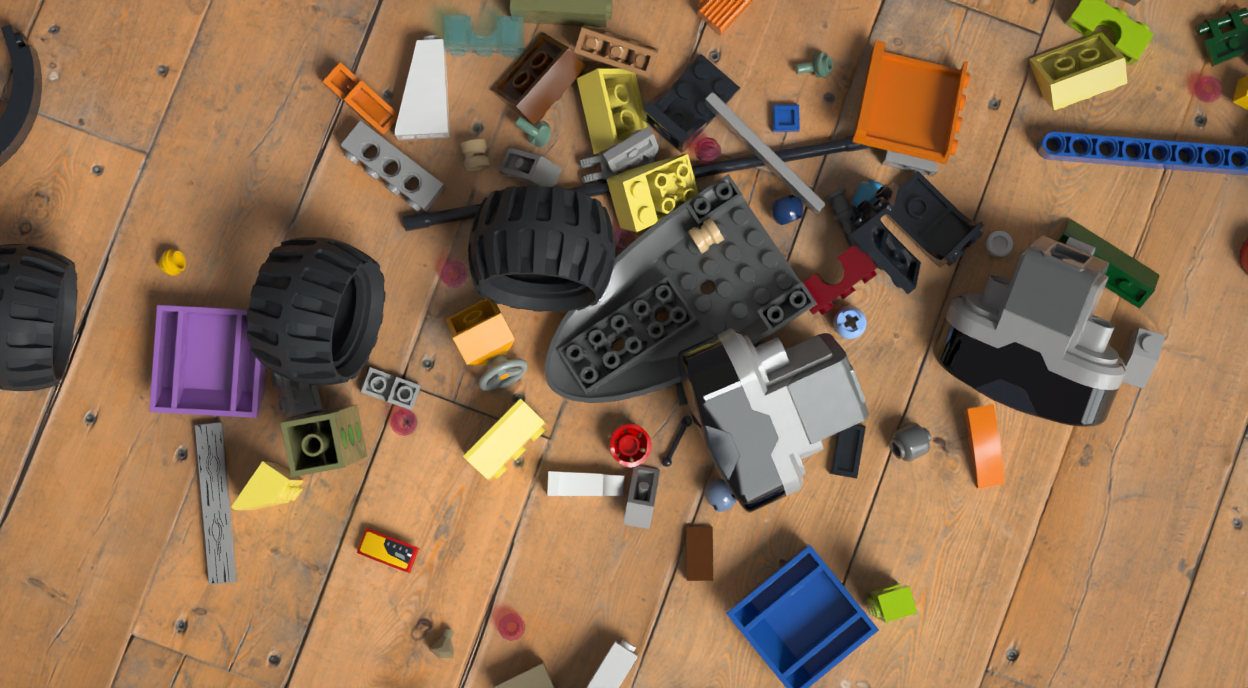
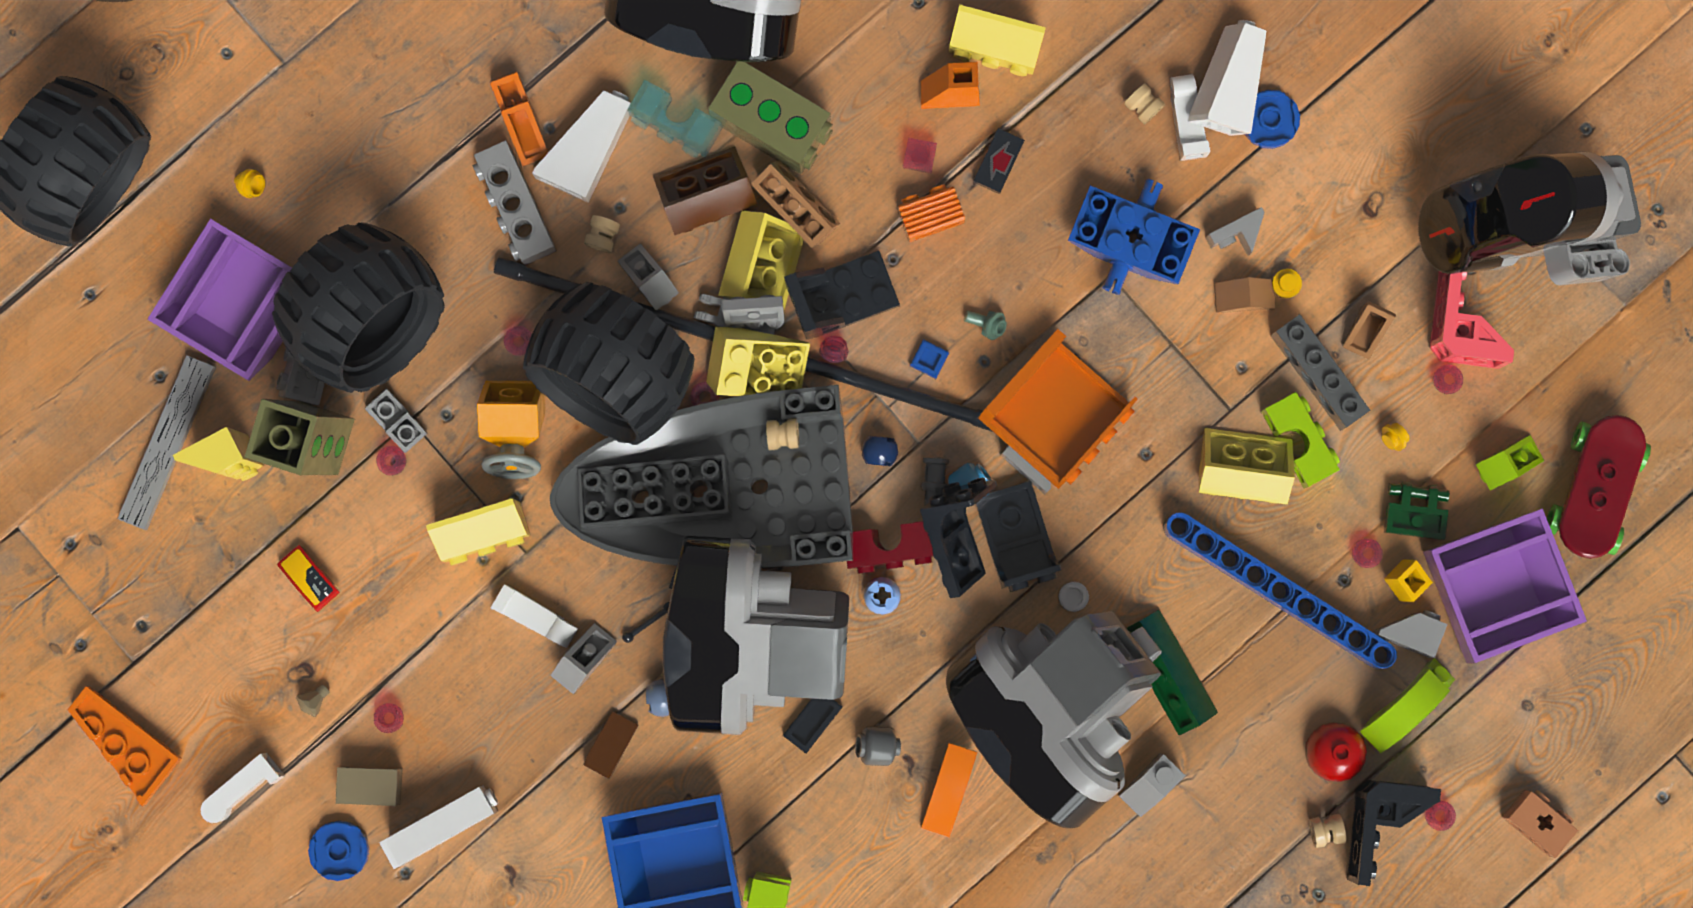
camera: 30 degrees right, 0 degrees up
(538, 134) = (674, 246): sand green plate -> none
(629, 445) = (599, 601): red helmet -> none
(764, 153) = (885, 383): light grey tile -> none

